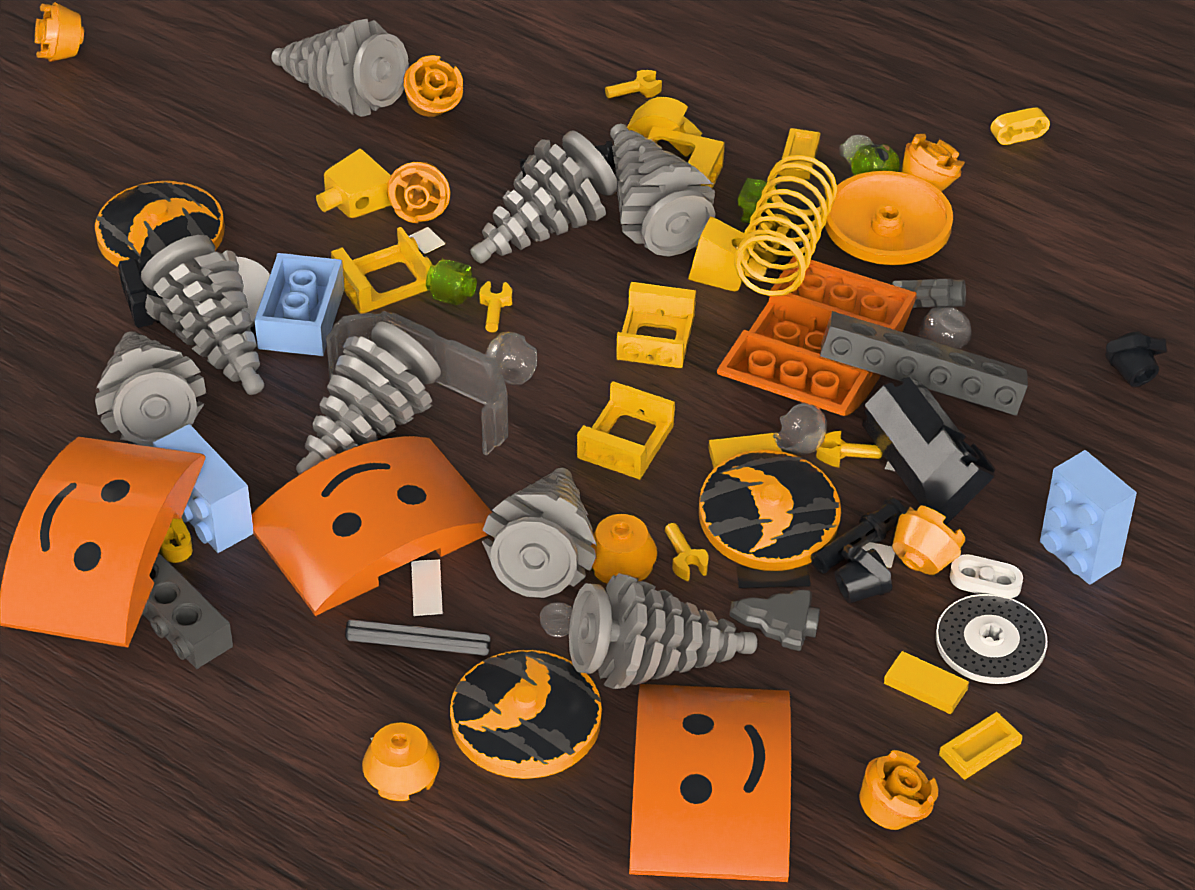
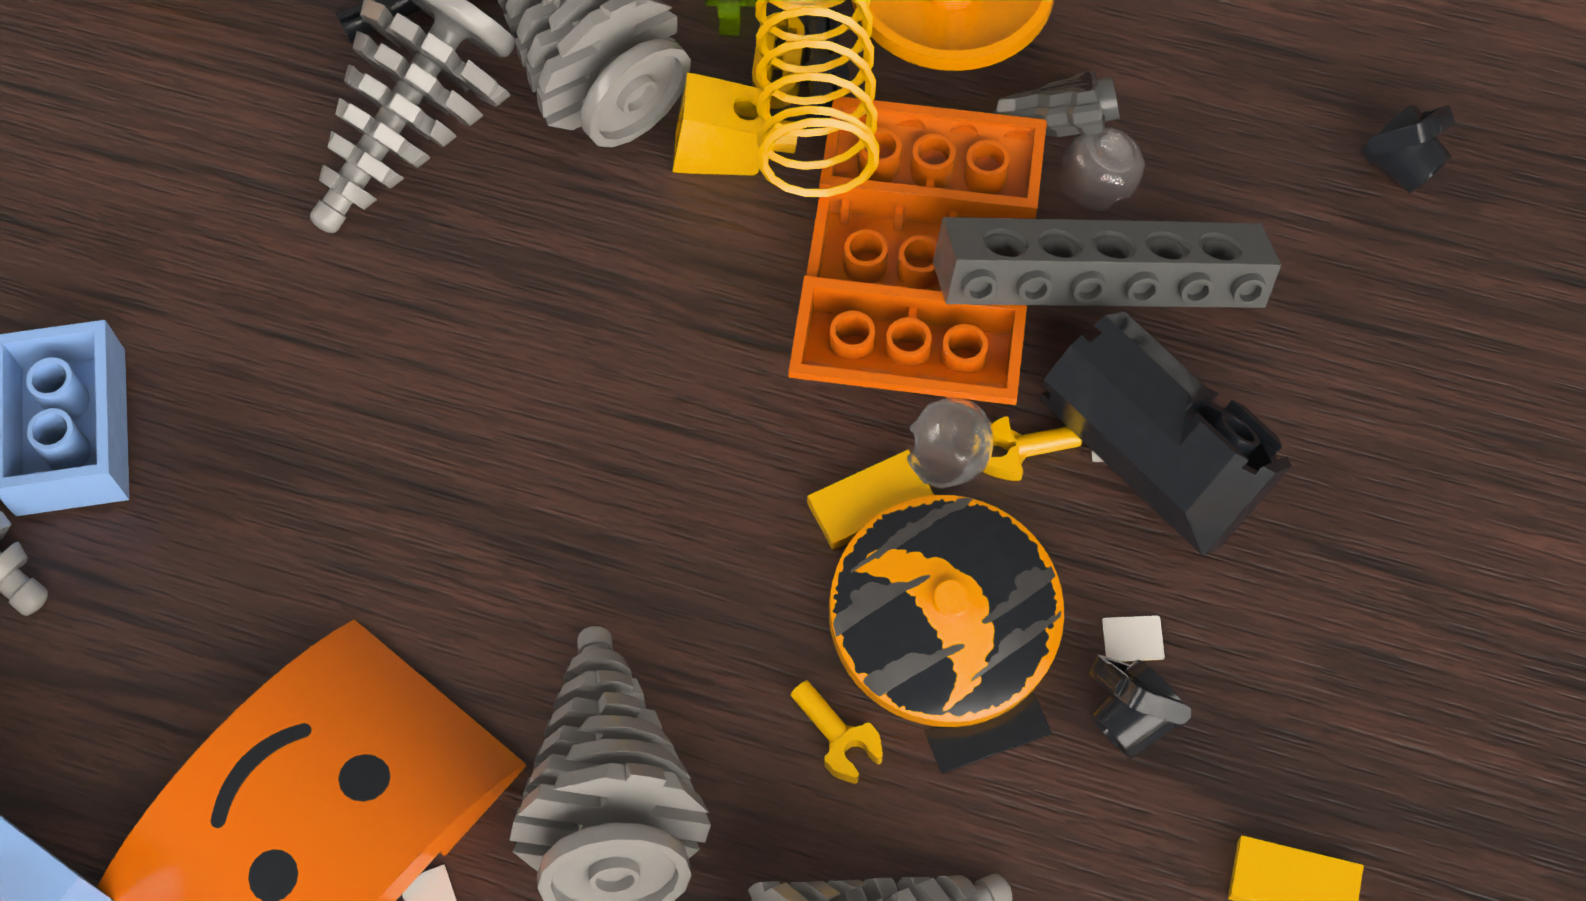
camera: 15 degrees left, 20 degrees up
(355, 186) = (85, 140): yellow torso -> none
(359, 288) = (150, 340): yellow window -> none
(371, 393) = (226, 609): light grey plant -> none
(418, 191) = (191, 129): light orange cone -> none
(427, 240) = (230, 209): white sticker -> none
(451, 281) = (297, 293): clear neon green head -> none
(460, 367) = (222, 447): clear windscreen -> none
(494, 304) = (380, 309): yellow bar -> none
(515, 357) = (442, 429): clear hair -> none
(618, 453) = (665, 567): yellow window -> none
(623, 548) = (741, 769): light orange cone -> none
(657, 308) = (651, 252): yellow window -> none
(780, 616) = (1032, 825): dark grey rock -> none
(871, 528) = (1115, 599): black pin -> none
(926, 541) = (1217, 616): light orange cone -> none
(986, 576) = (1319, 643): white plate -> none
(1010, 658) = (1366, 807): piece -> none
(1087, 517) = (1464, 507): light blue brick -> none

